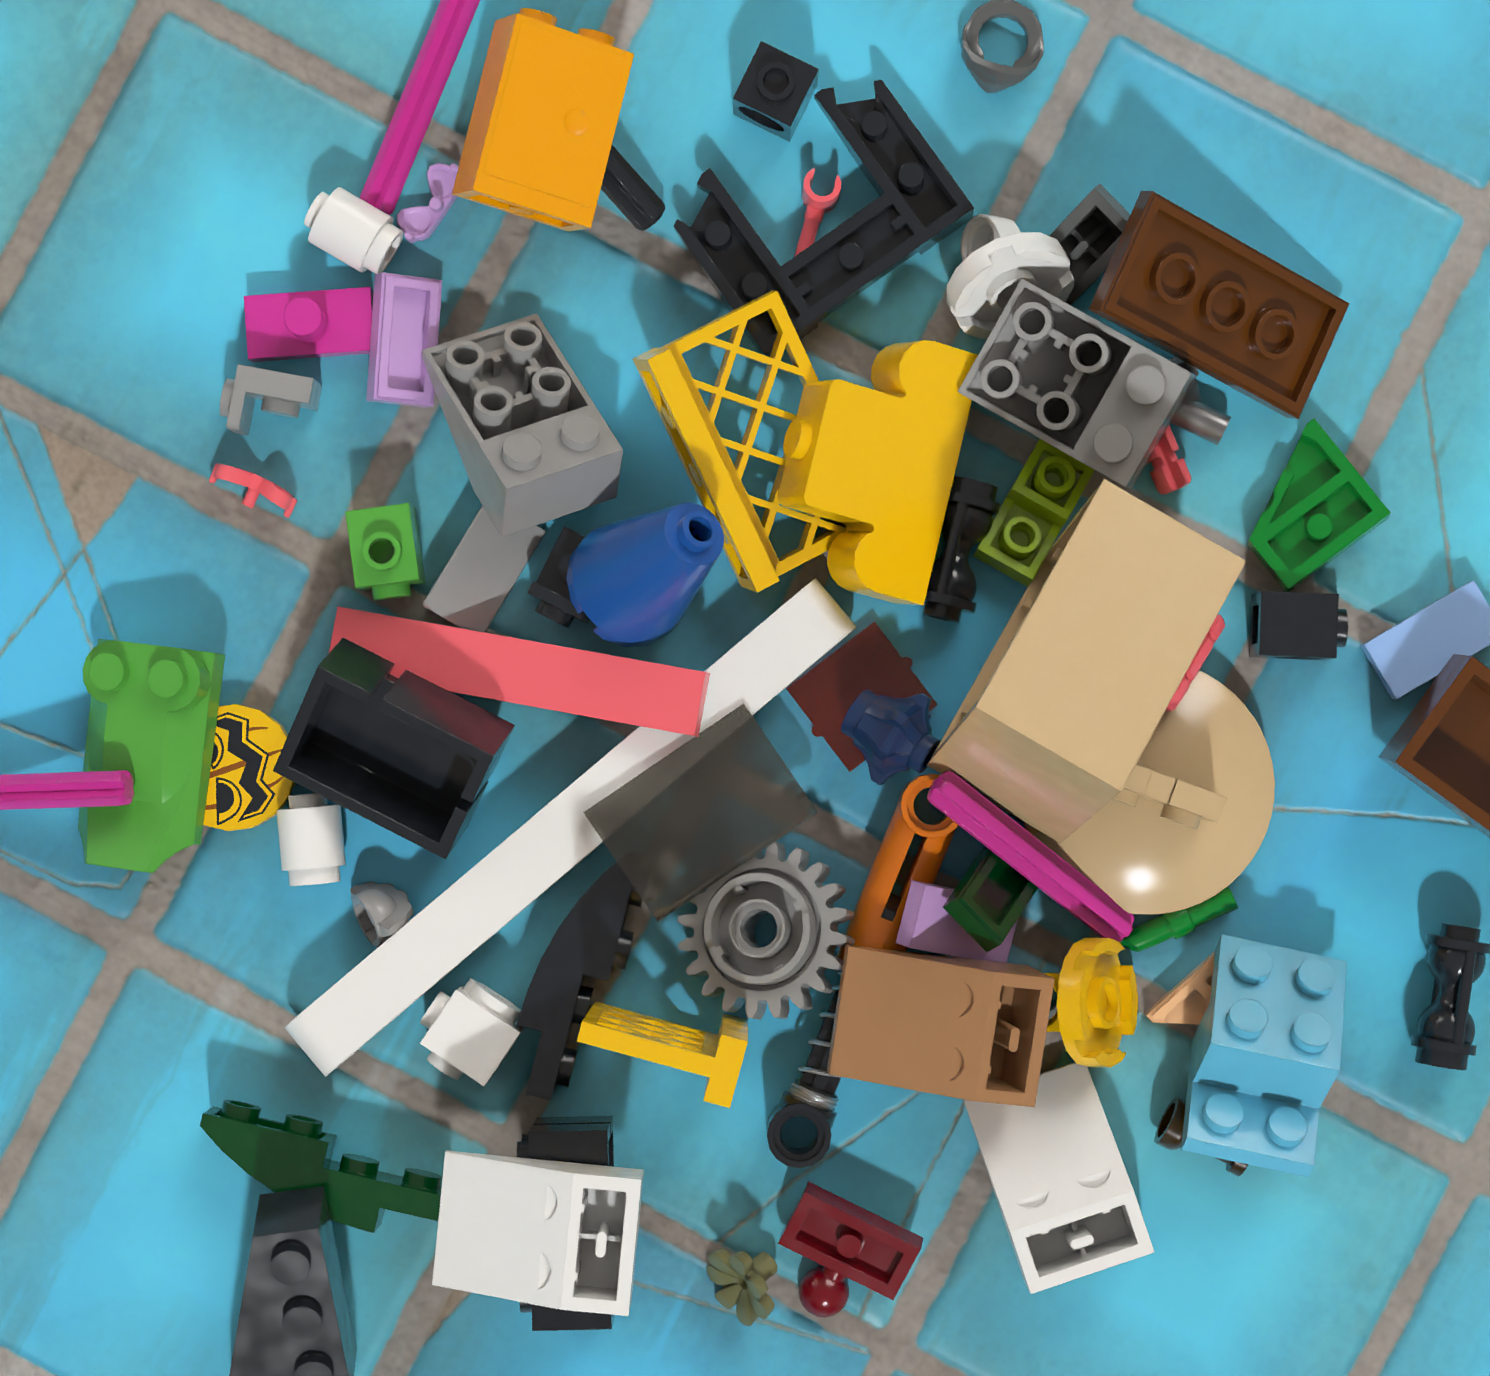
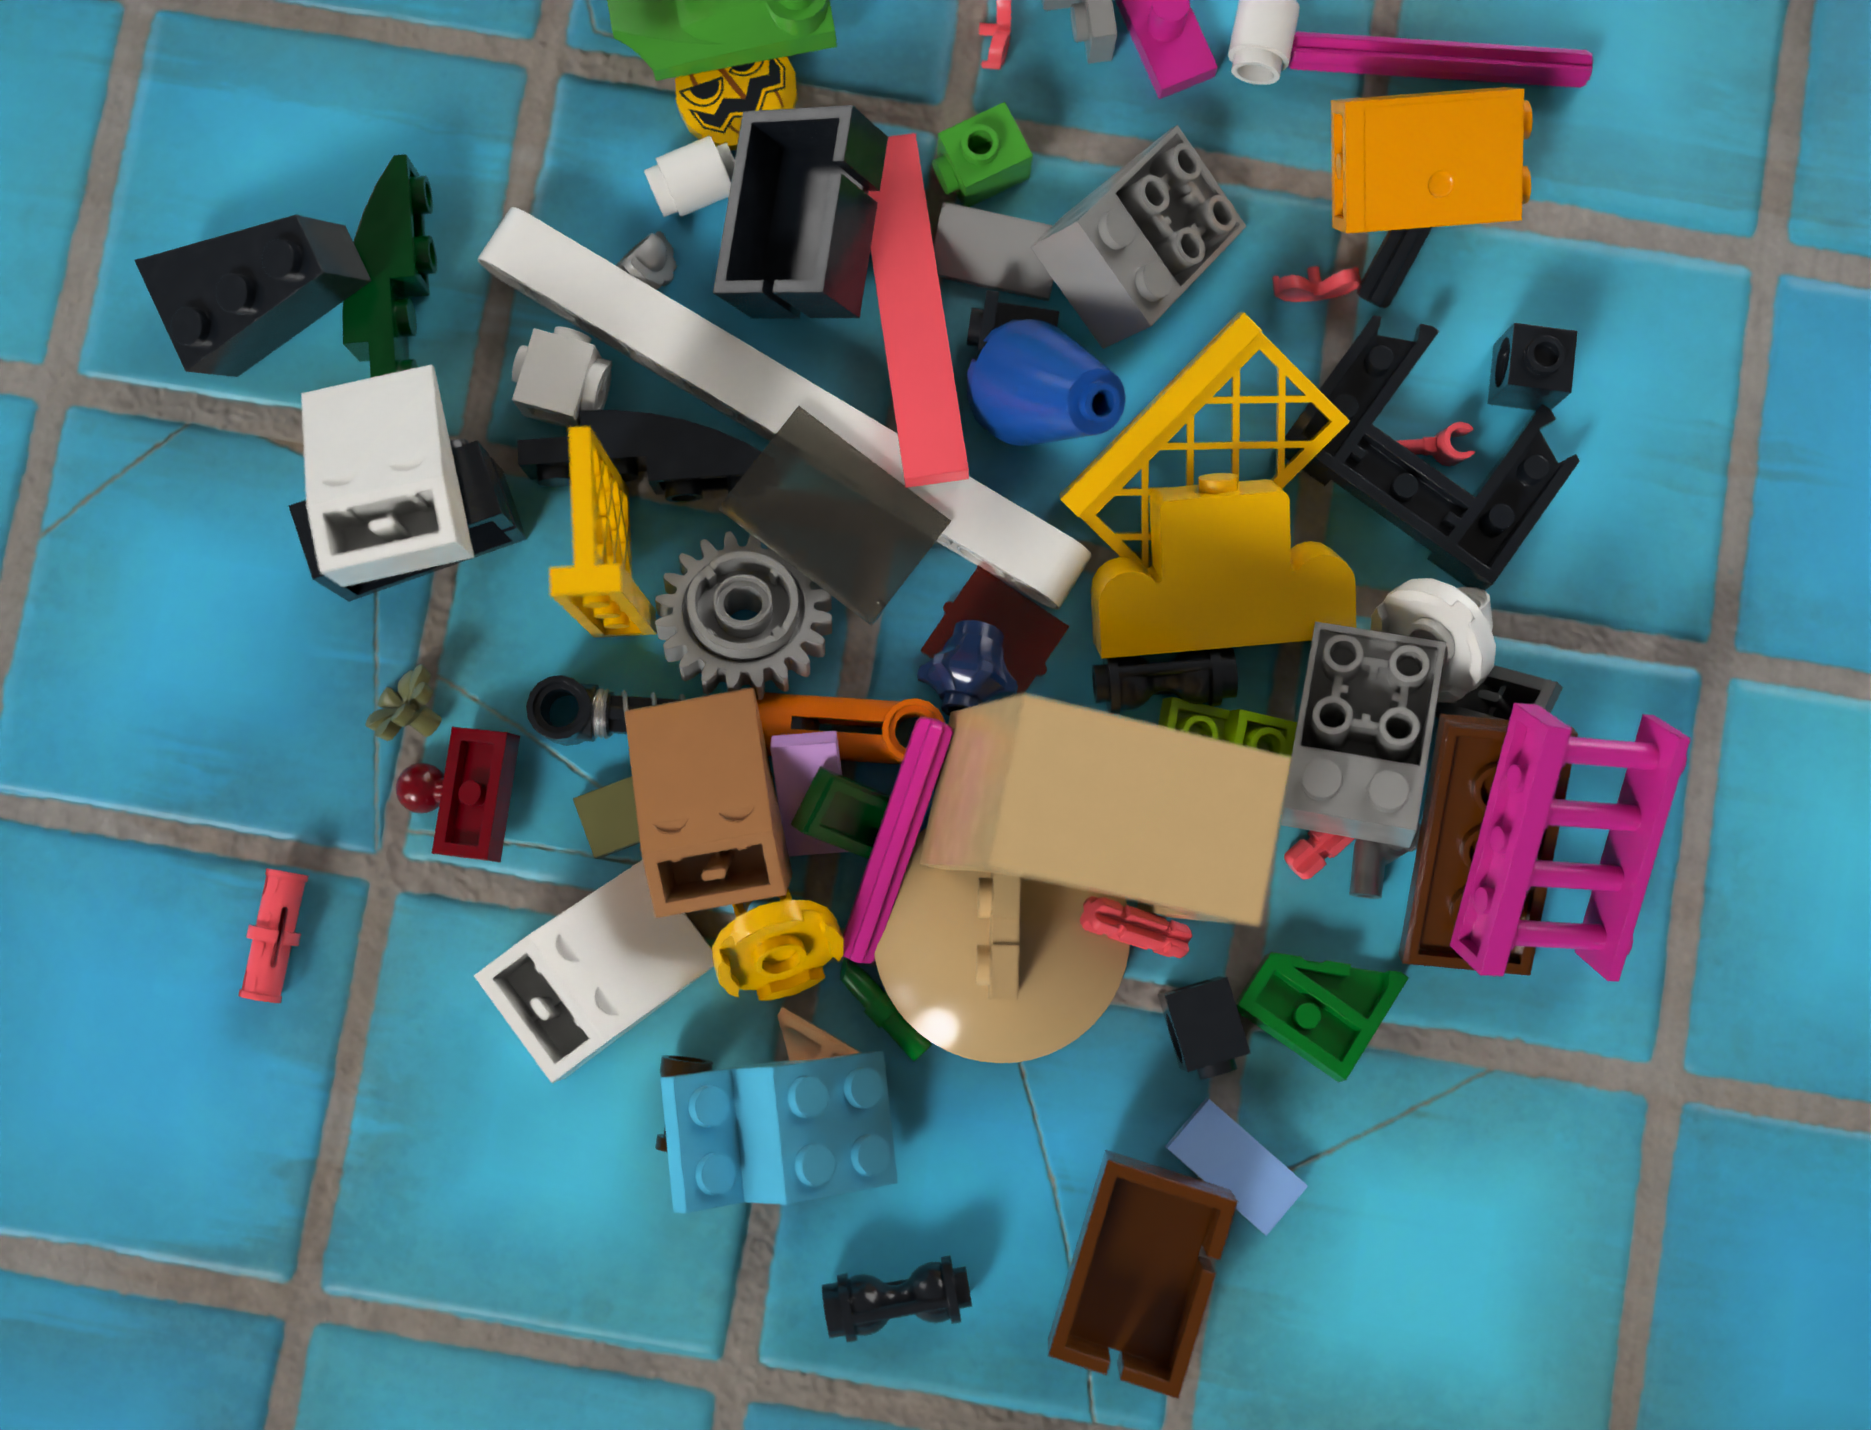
camera: 65 degrees right, 5 degrees down
(401, 327) = (1200, 105): lavender tile -> none
(422, 221) = (1292, 97): lavender piece -> none
(621, 267) = (1299, 289): none -> coral piece
(913, 1119) = (609, 817): none -> olive tile
(990, 75) = (1621, 568): dark grey piece -> none
(1204, 265) = (1523, 808): none -> dark pink fence

